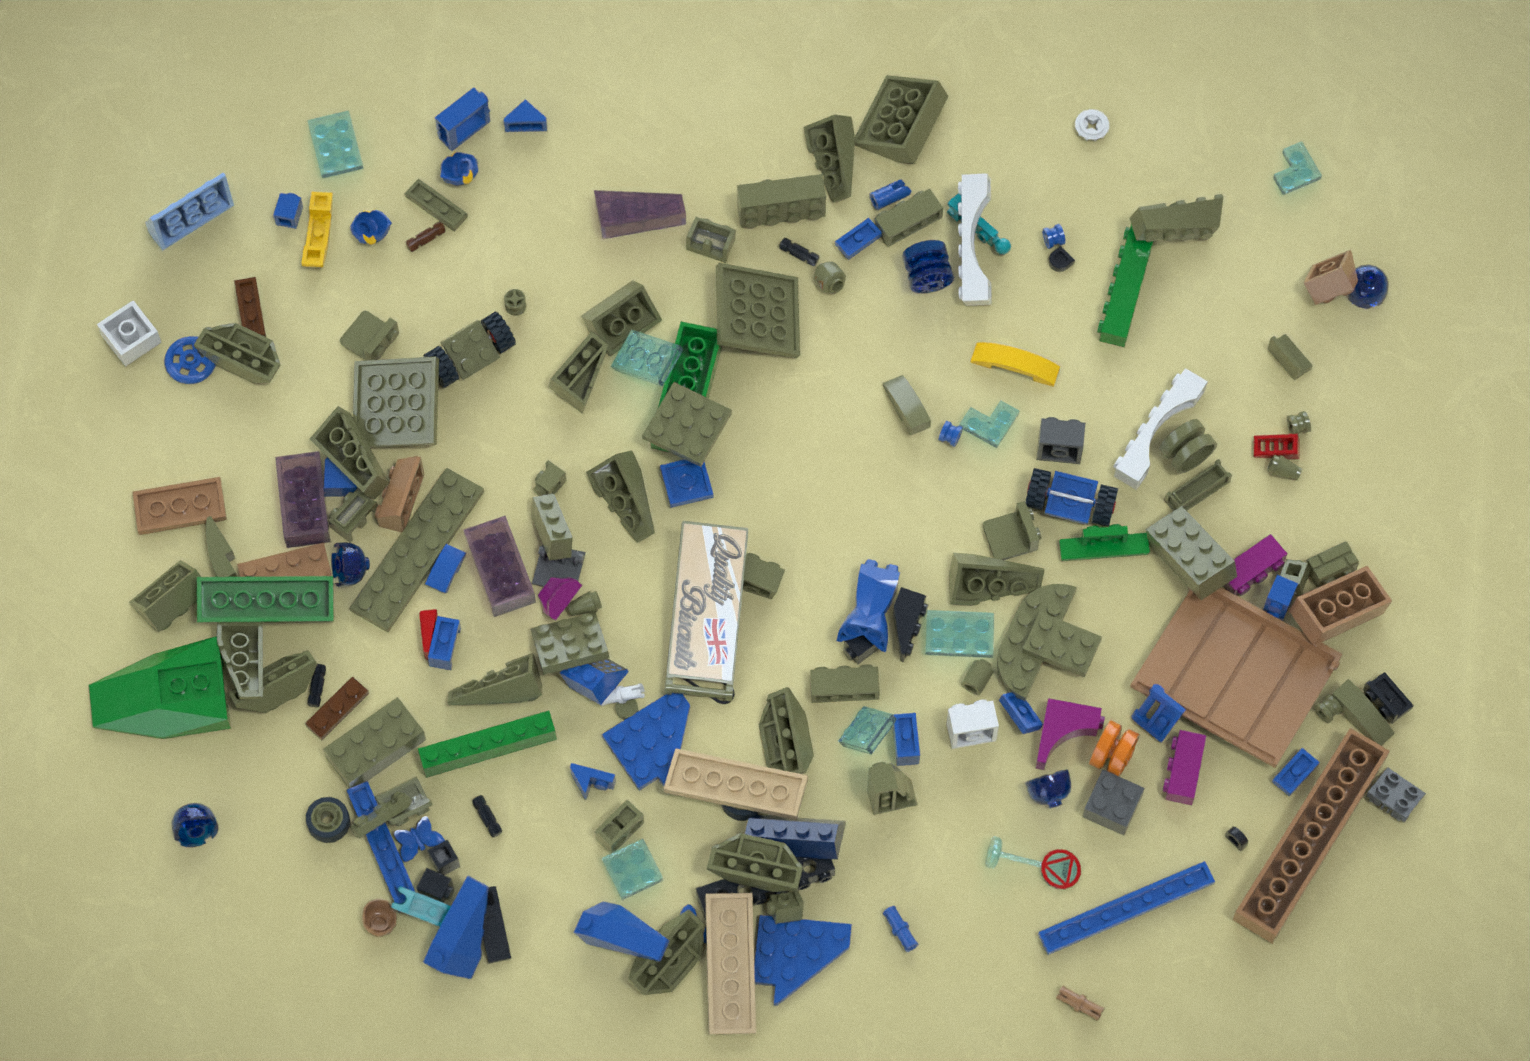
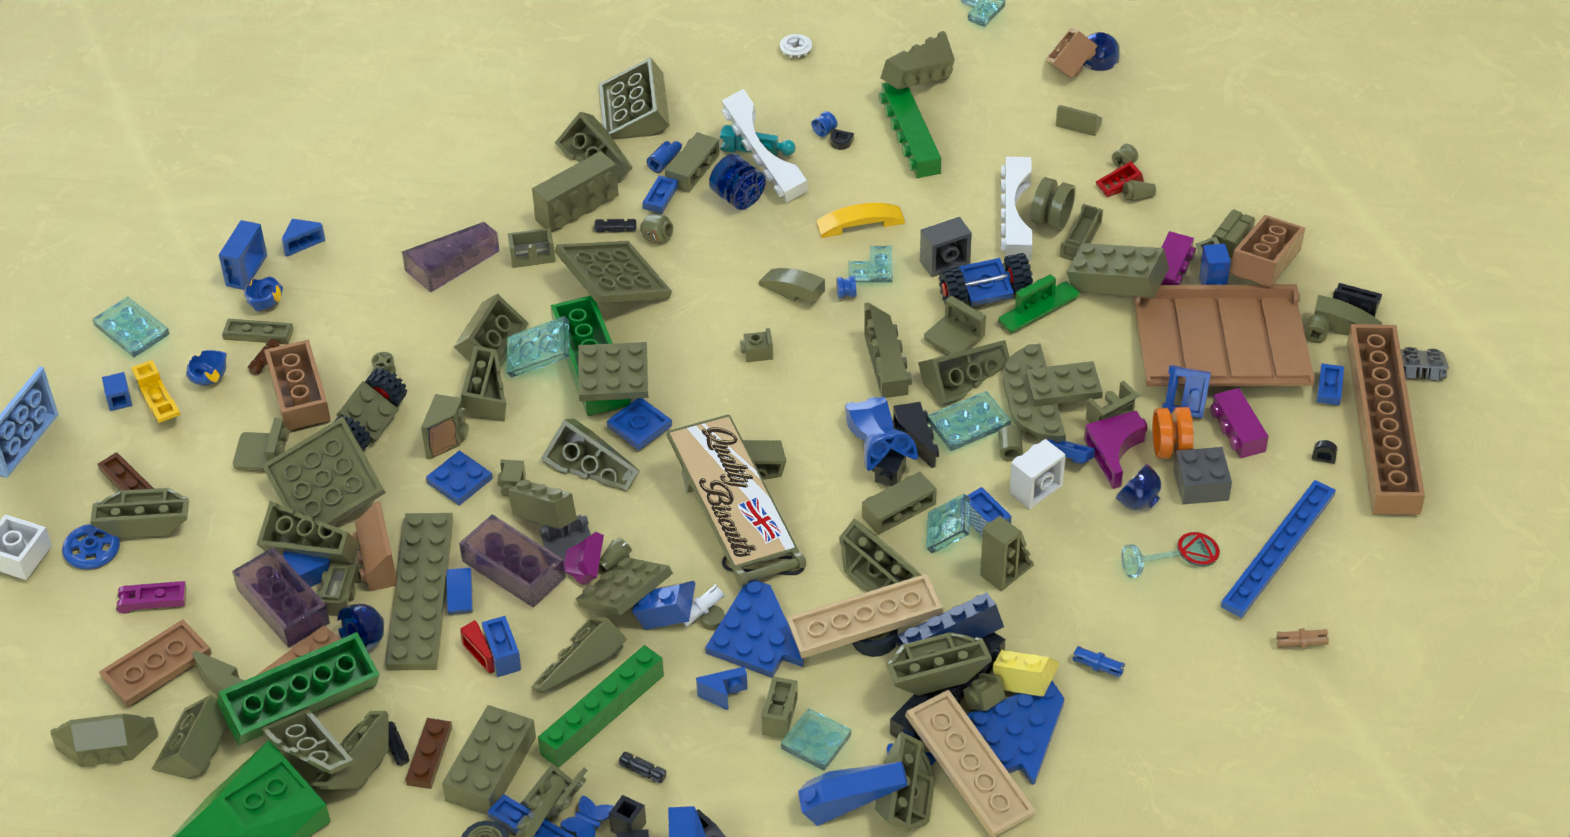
camera: 30 degrees left, 20 degrees down
(105, 561) = (104, 738): none -> olive wedge
(210, 438) = (151, 596): none -> magenta plate
(431, 287) = (297, 385): none -> medium nougat brick
(511, 453) = (459, 477): none -> blue plate
(522, 399) = (444, 425): none -> olive slope
(832, 905) = (1025, 672): none -> light yellow slope
(834, 461) = (757, 346): none -> olive brick
(935, 525) = (886, 352): none -> olive wedge
(1087, 692) = (1117, 405): none -> olive window

